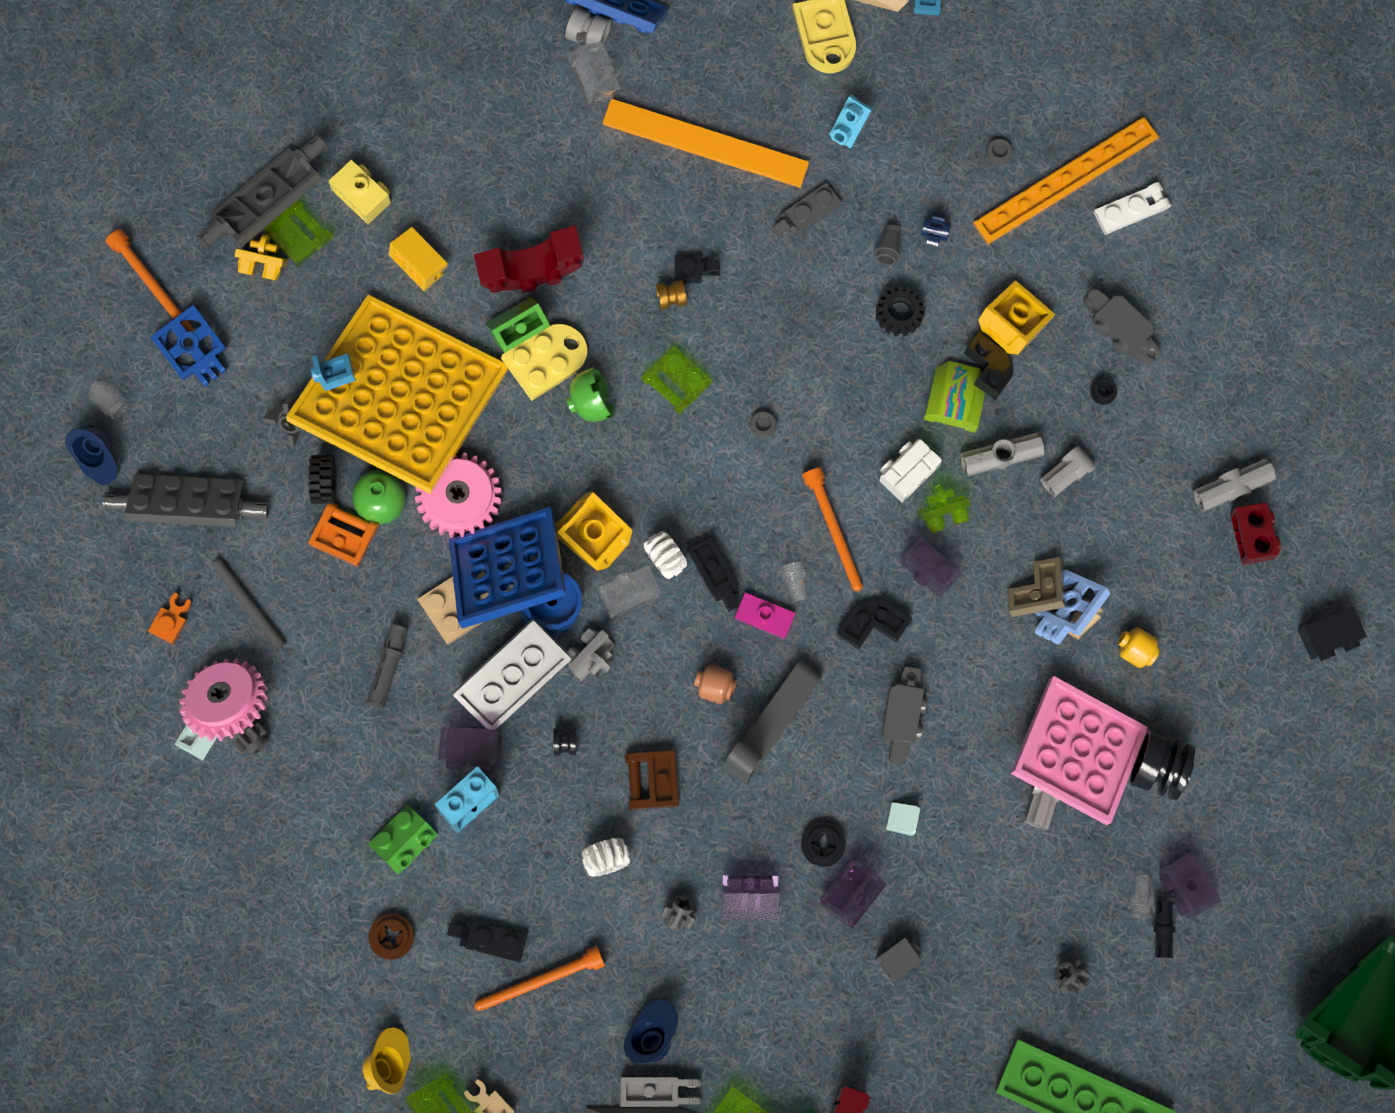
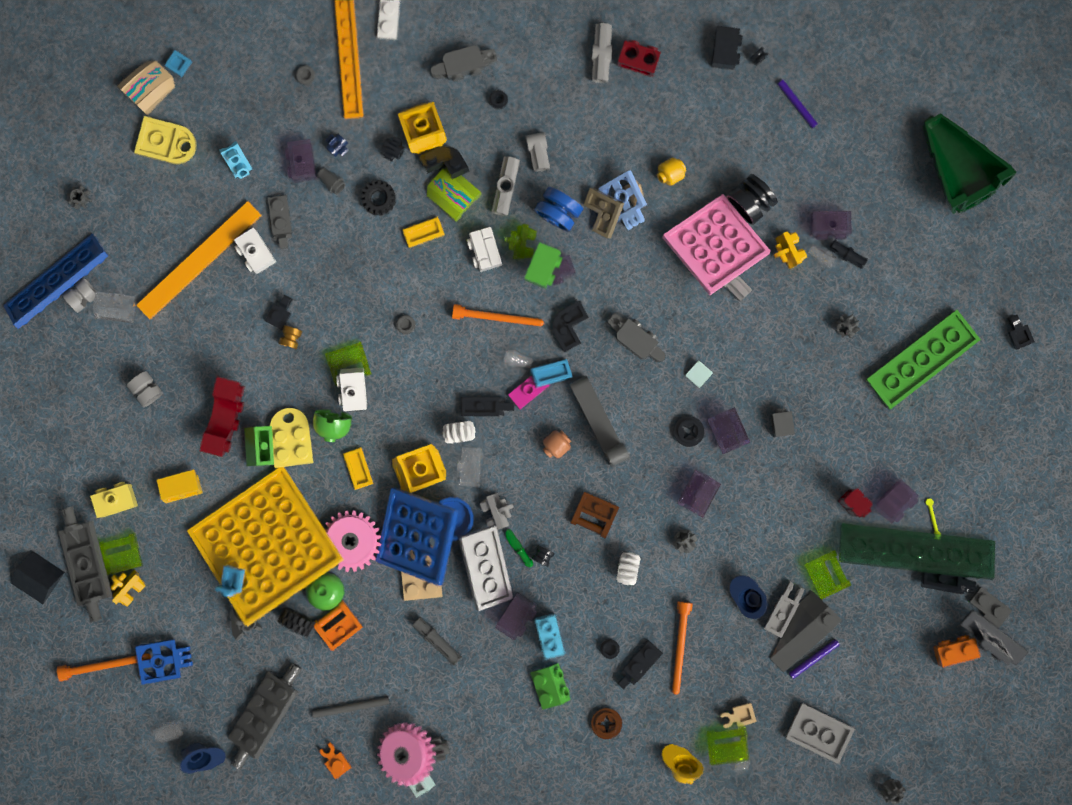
camera: 55 degrees left, 10 degrees up
(219, 151) = (37, 577): none -> black slope
(490, 890) = (610, 649): none -> black plate
(516, 155) = (145, 389): none -> light grey wheel
(553, 459) = (358, 468): none -> yellow tile
(558, 706) = (516, 545): none -> green piece
(648, 399) = (352, 388): none -> white brick
(753, 199) = (254, 250): none -> white brick
(801, 631) = (551, 373): none -> dark azure tile
(889, 386) = (423, 232): none -> yellow tile
(893, 198) = (301, 161): none -> clear purple brick
(929, 545) = (543, 265): none -> bright green brick
(969, 296) = (393, 149): none -> black gear
(1011, 530) = (558, 209): none -> blue wheel
(1122, 848) = (787, 250): none -> yellow hips
(1316, 763) = (797, 103): none -> dark purple bar
(1347, 681) = (759, 56): none -> black bush

